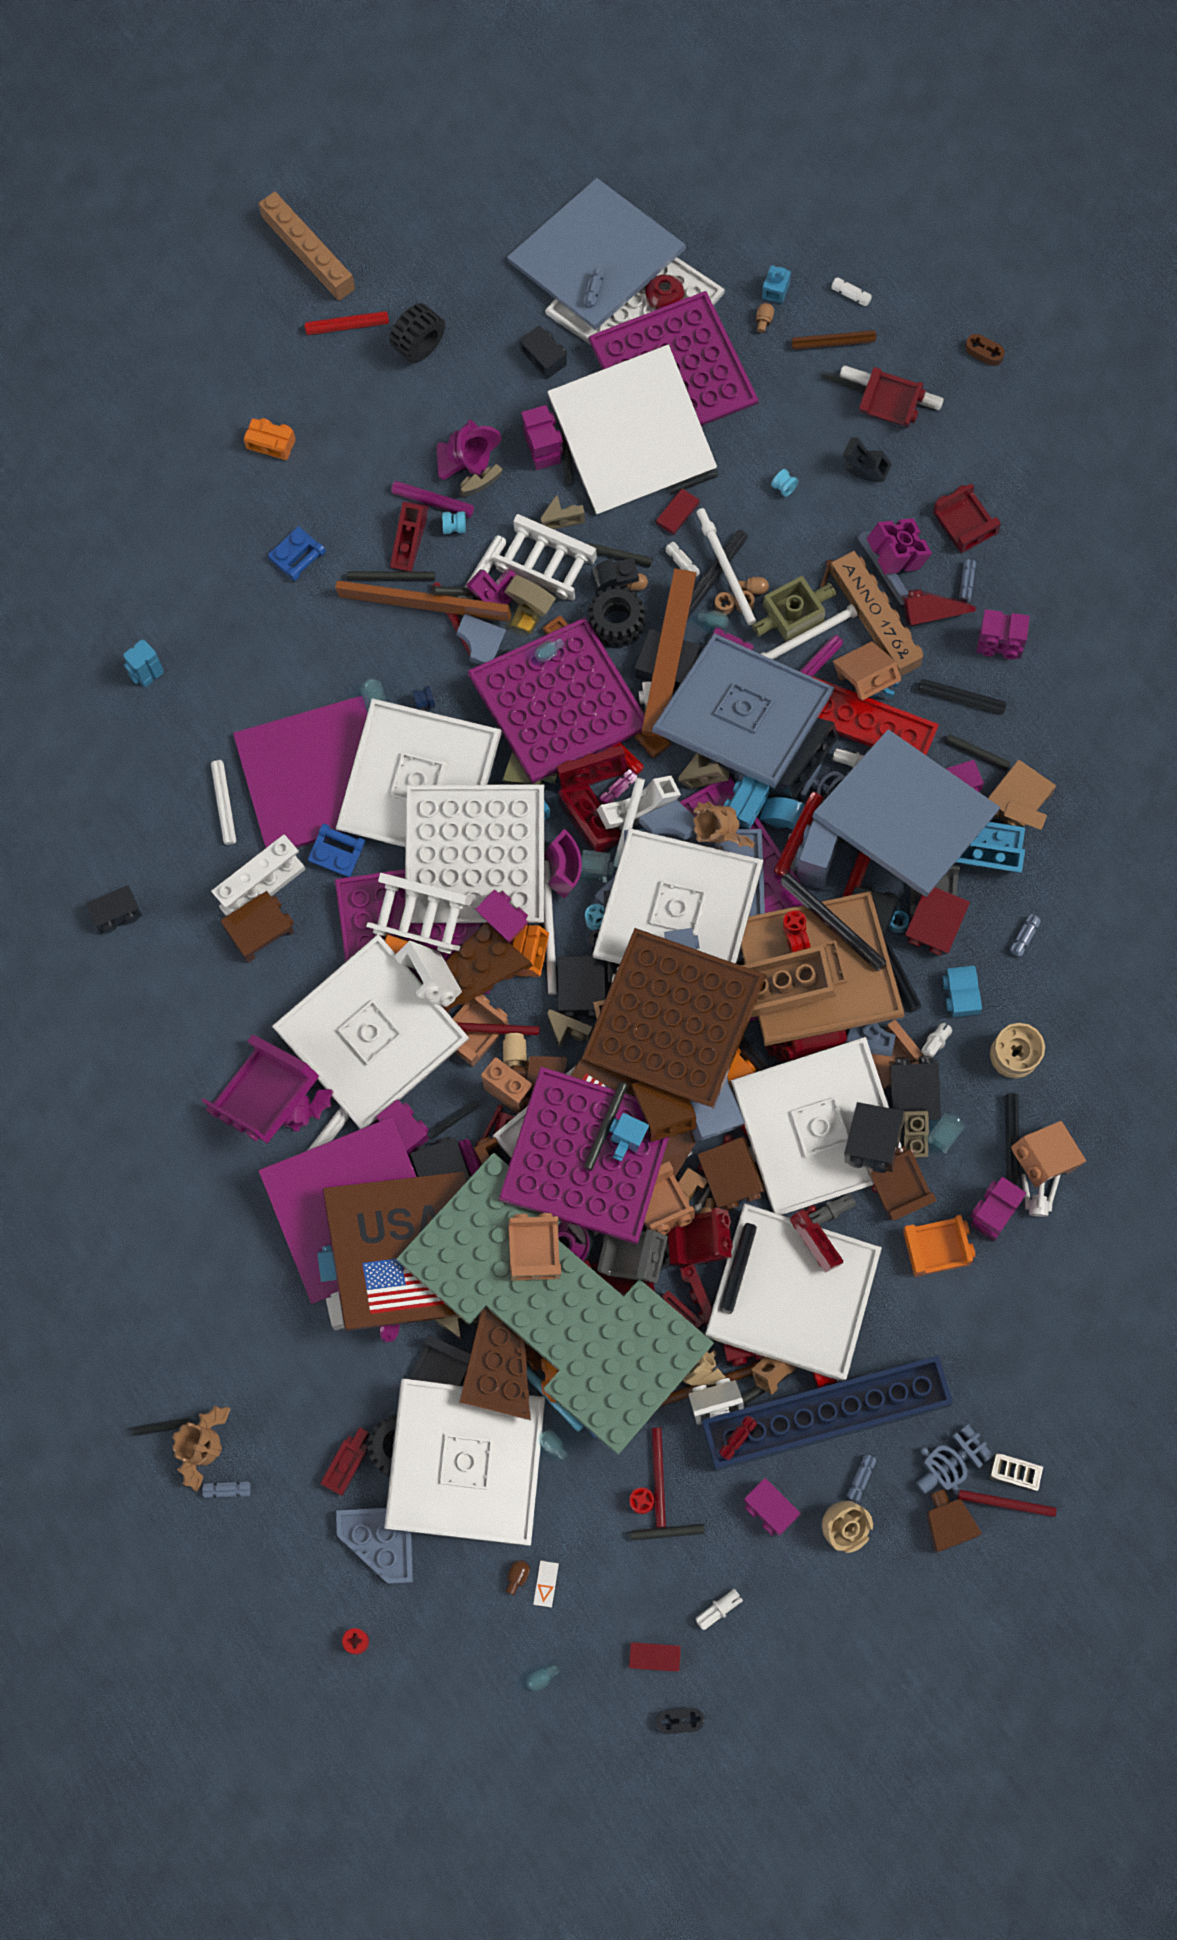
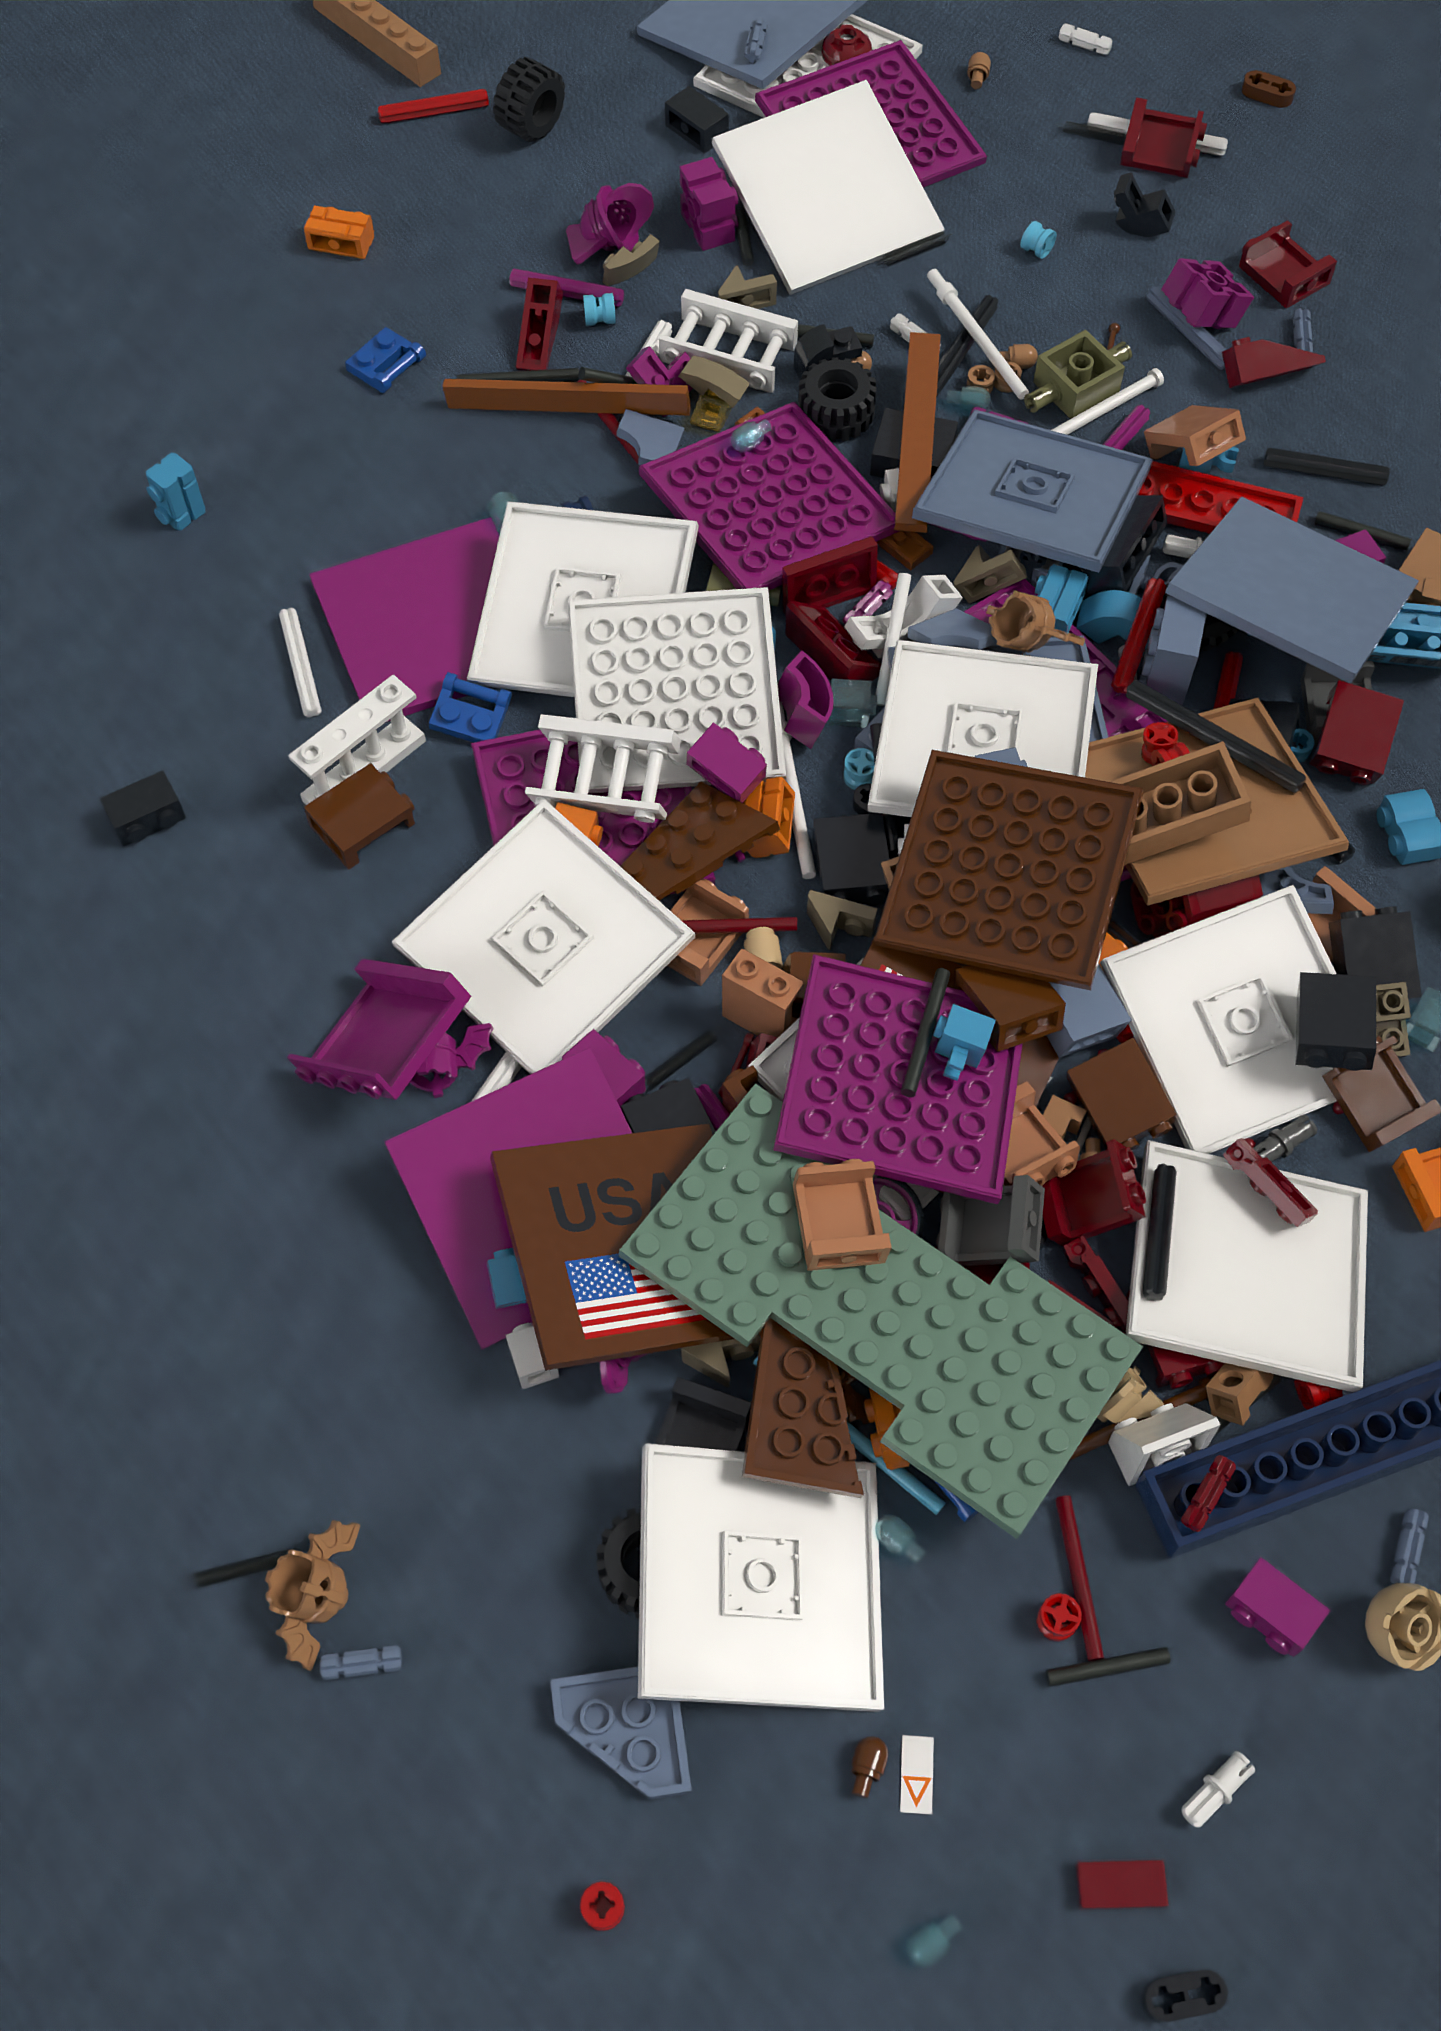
camera: 10 degrees left, 10 degrees down
(346, 1462) = (559, 1599): dark red hinge -> none
(438, 982) = (635, 853): white panel -> none
(678, 511) = (900, 282): dark red tile -> none
(776, 284) = (989, 31): dark azure brick -> none
(833, 339) = (1072, 88): reddish brown axle -> none
(875, 612) = (1184, 368): medium nougat brick -> none
(936, 1040) = (1391, 890): white axle -> none
(1003, 634) = (1369, 383): magenta brick -> none

